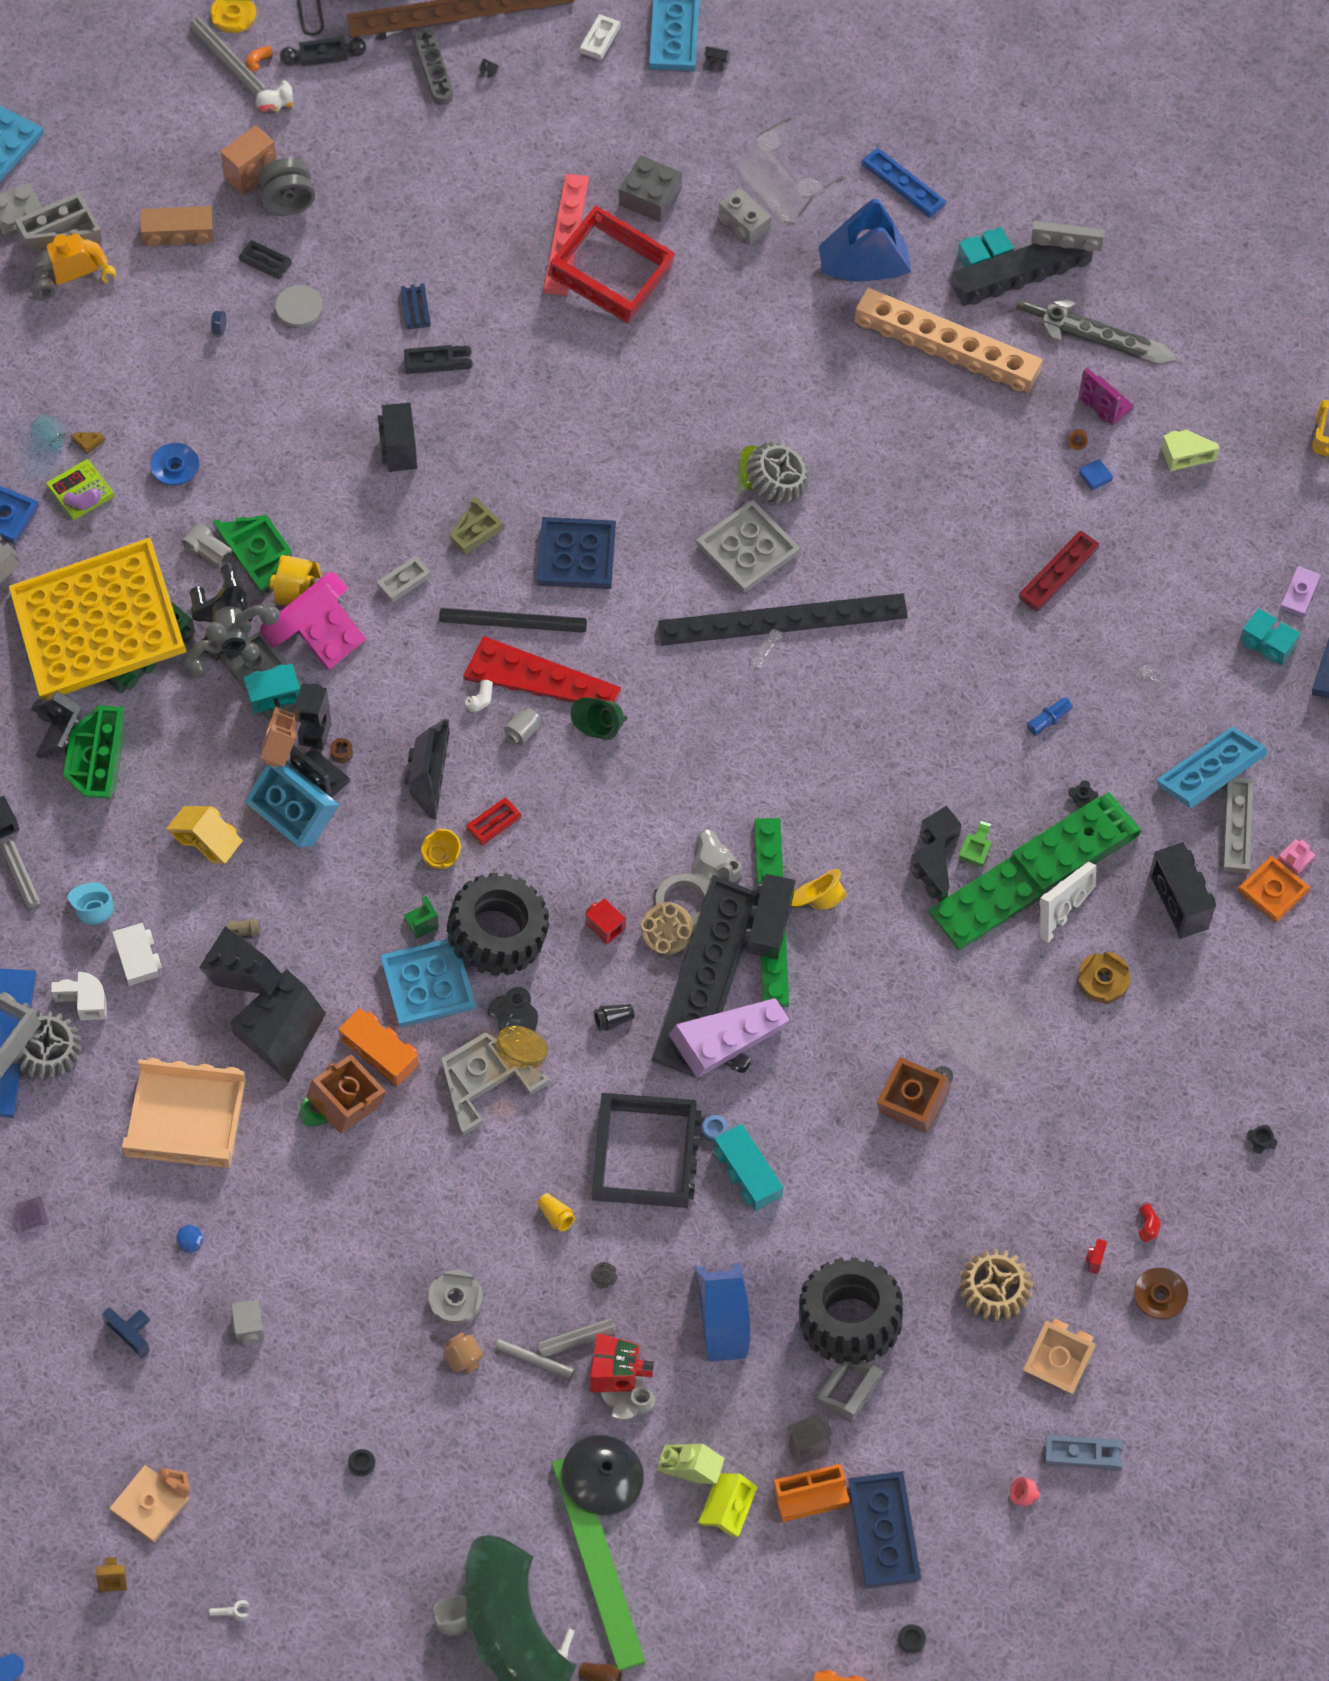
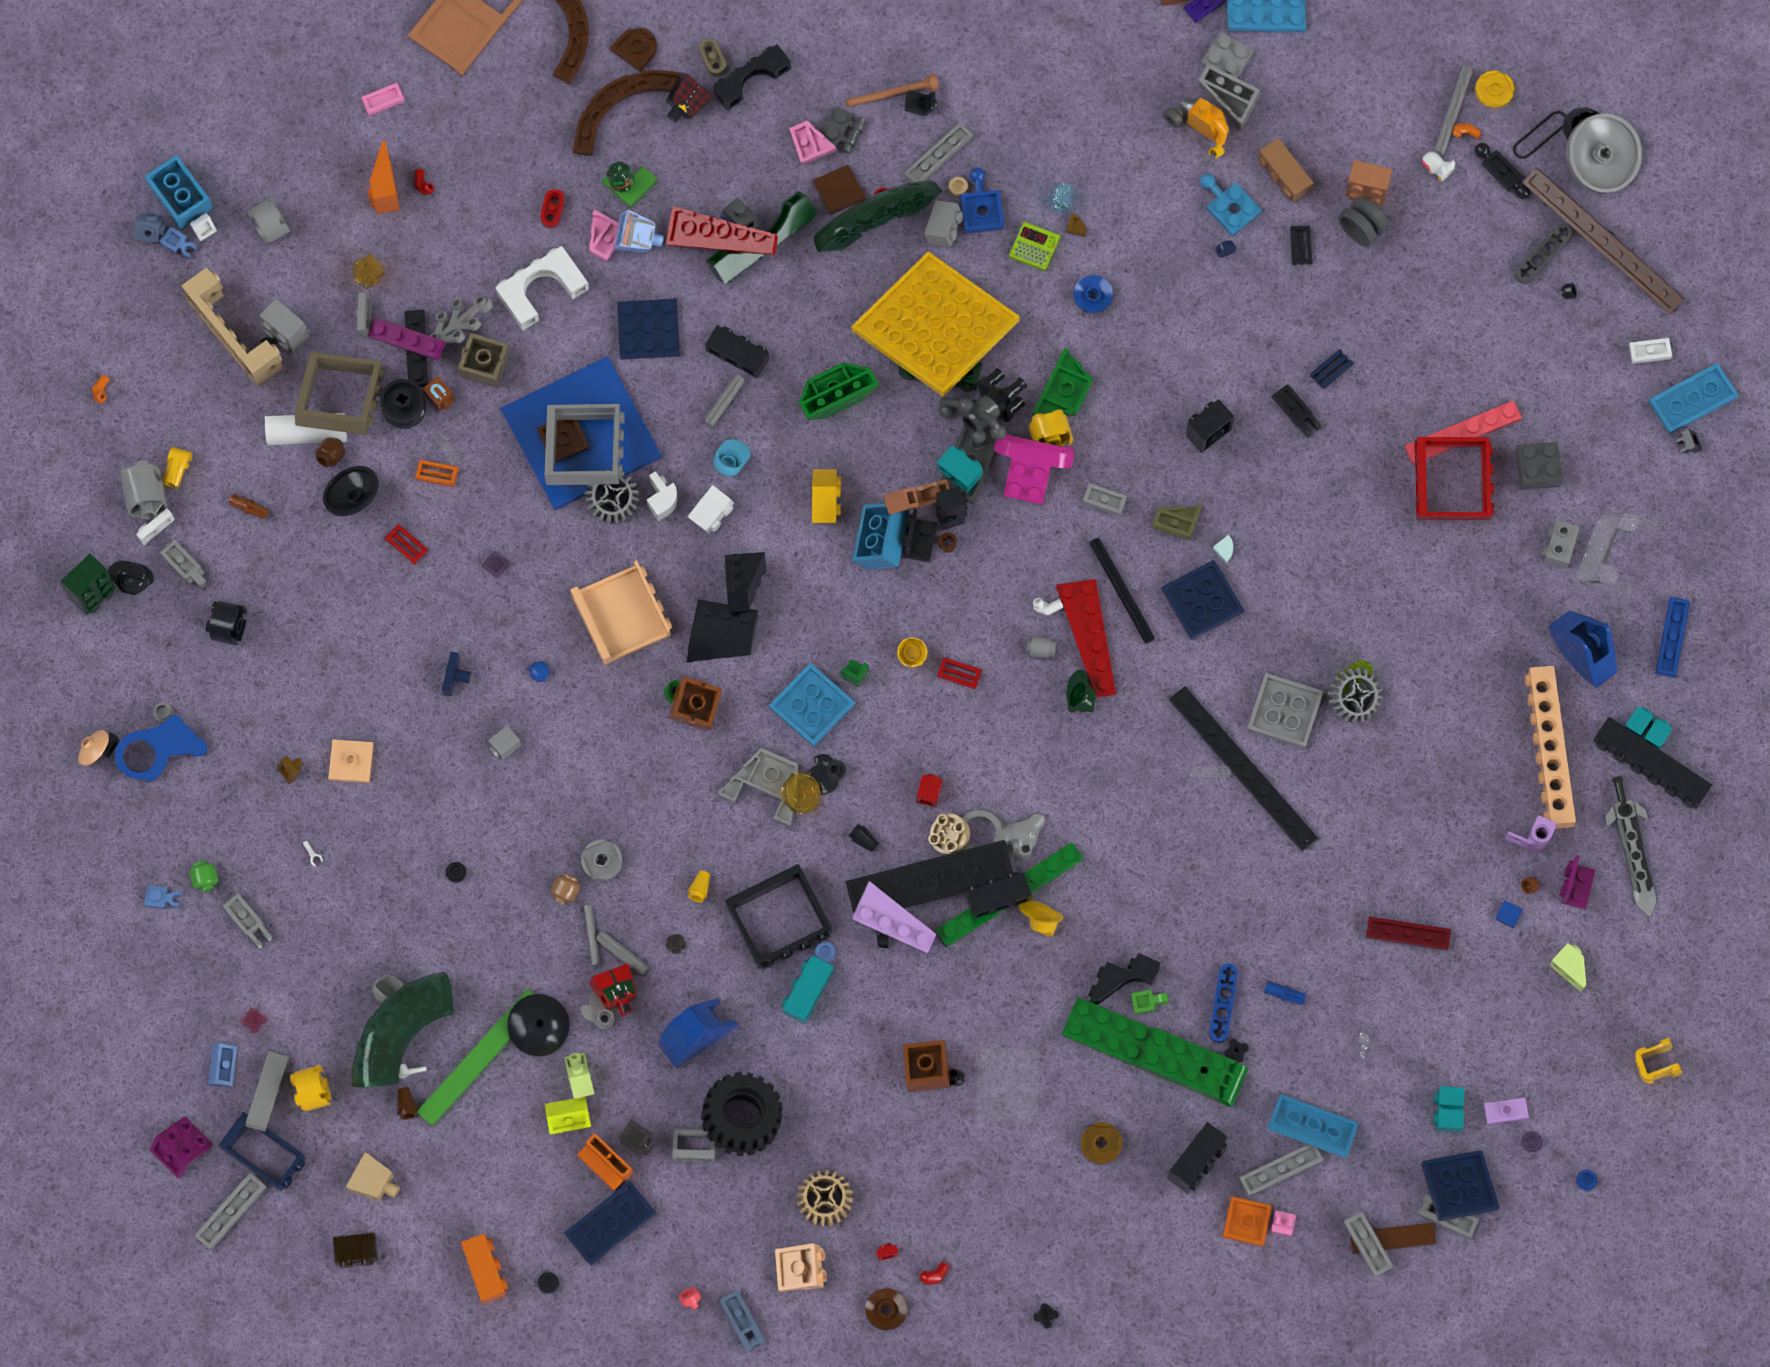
camera: 60 degrees right, 10 degrees up
(63, 717) = (845, 354): black bracket -> none
(84, 500) = (1024, 255): medium lavender arm -> none
(169, 304) = (1232, 196): none -> dark azure plate
(174, 1481) = (372, 767): nougat tile -> none
(203, 543) = (1044, 356): light grey piece -> none
(245, 928) = (776, 565): dark tan pin -> none
(299, 306) = (1277, 292): light grey tile -> none
(379, 1046) = (745, 703): orange brick -> none
(428, 767) = (970, 605): black wedge -> none
(492, 952) = (891, 700): black tyre -> none
(536, 504) = (1224, 549): none -> light aqua tile
(1026, 776) = (1226, 1004): none -> blue beam
(1033, 398) = (1542, 828): none -> lavender piece
(1060, 900) = (1139, 1081): white wing -> none
(1067, 236) = (1690, 779): light grey plate -> none

